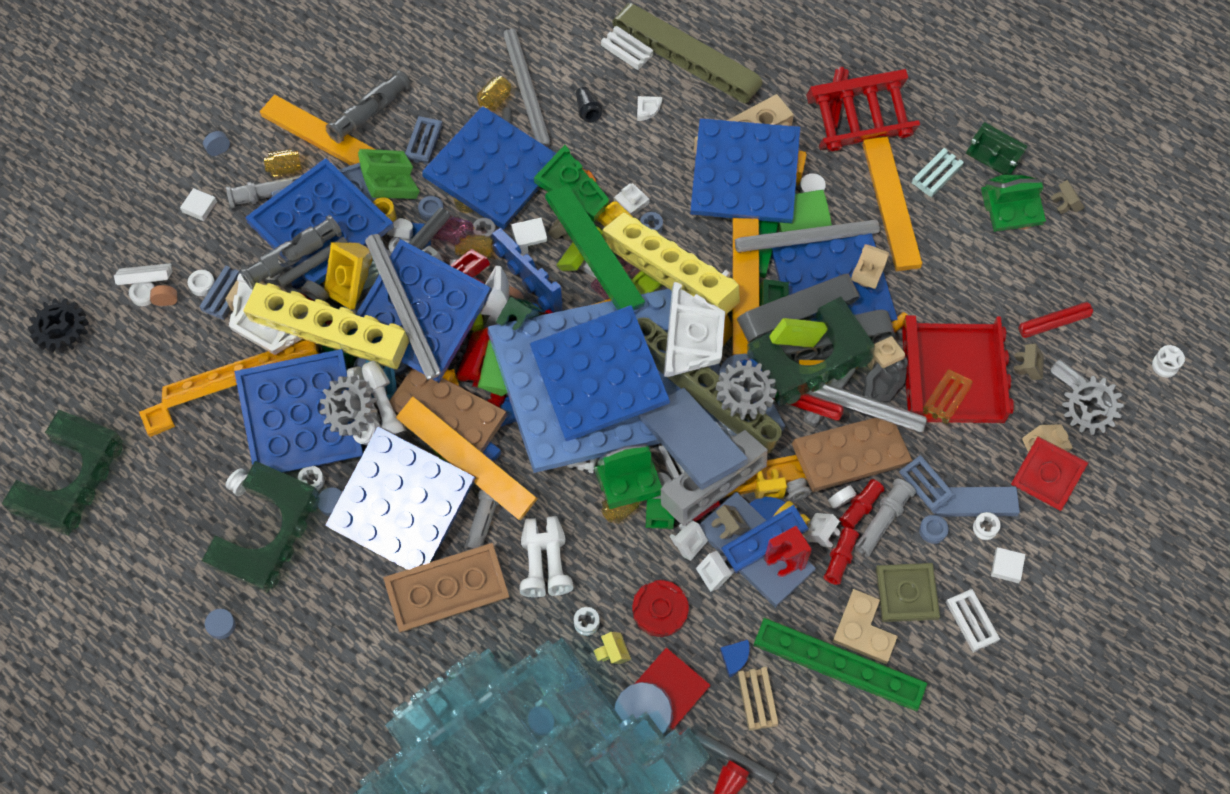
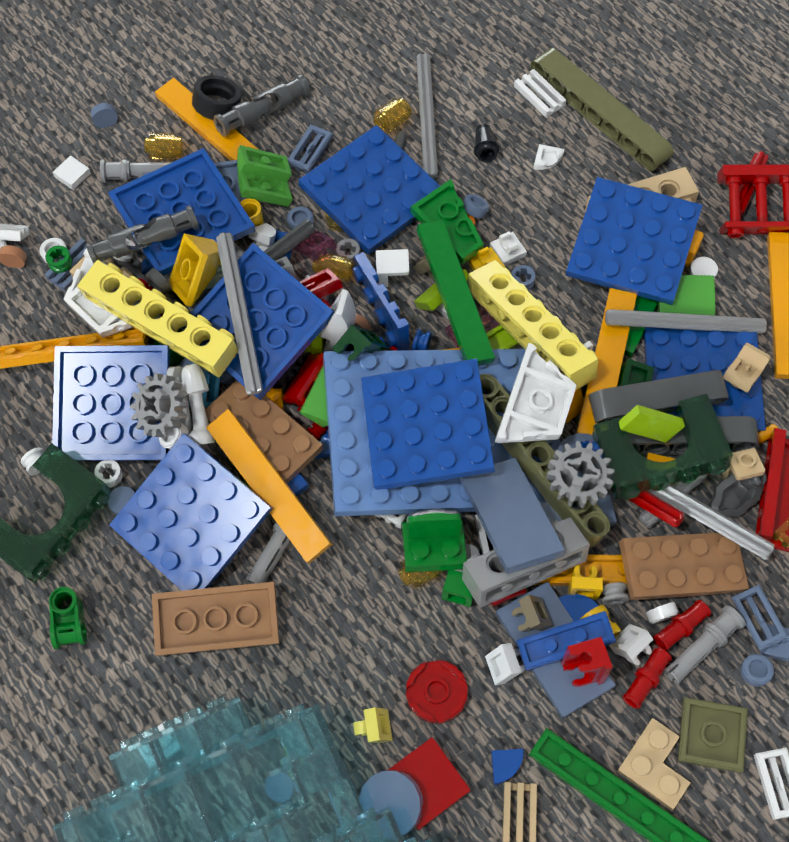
camera: 15 degrees right, 0 degrees up
(205, 283) = (55, 252): none -> green bush
(307, 265) = (155, 252): dark grey bar -> none
(309, 621) = (66, 625): none -> green piece
(321, 95) = (215, 86): none -> black tyre
(535, 542) = (319, 591): white piece -> none
(572, 299) = (421, 340): none -> blue bush
(591, 628) = (352, 678): white bush -> none
(593, 165) = (475, 206): none -> sand blue tile
(689, 539) = (485, 623): white tile -> none

